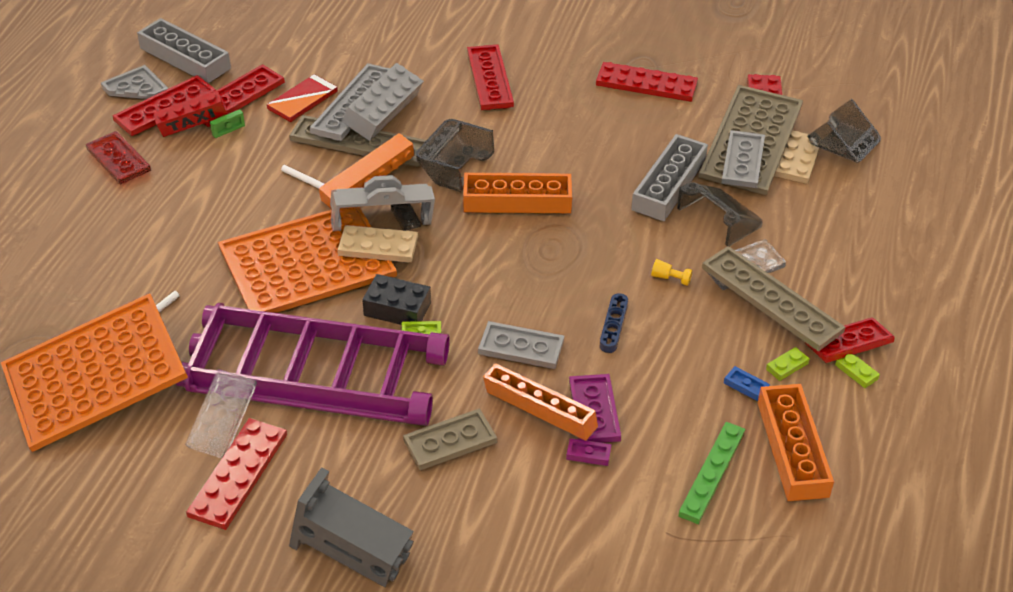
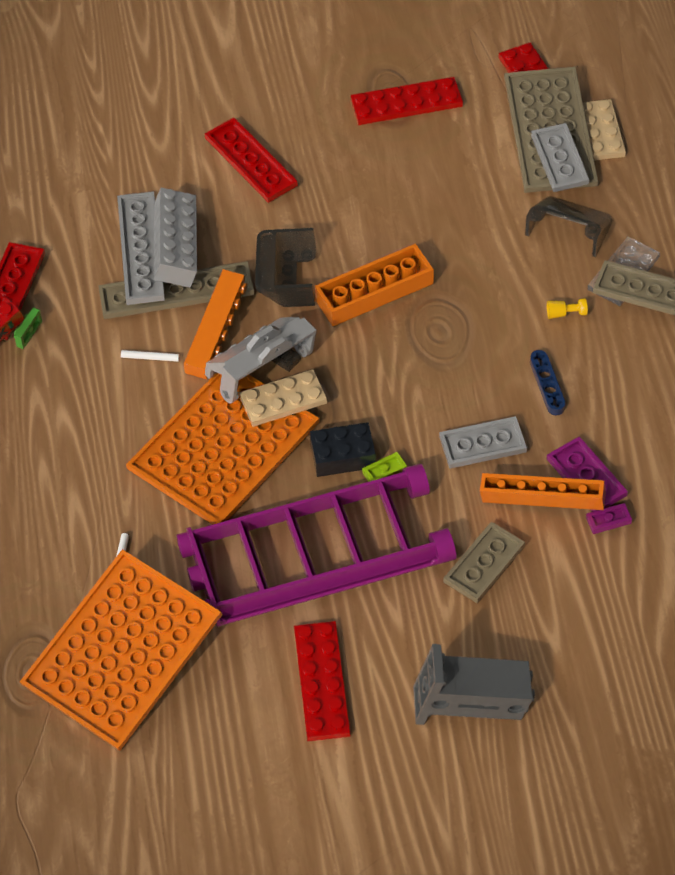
camera: 25 degrees left, 10 degrees up
(221, 413) = (272, 634): clear plate -> none
(302, 98) = (77, 264): tile -> none
(673, 169) = (503, 206): light grey brick -> none
(846, 133) = (636, 87): clear smoke windscreen -> none

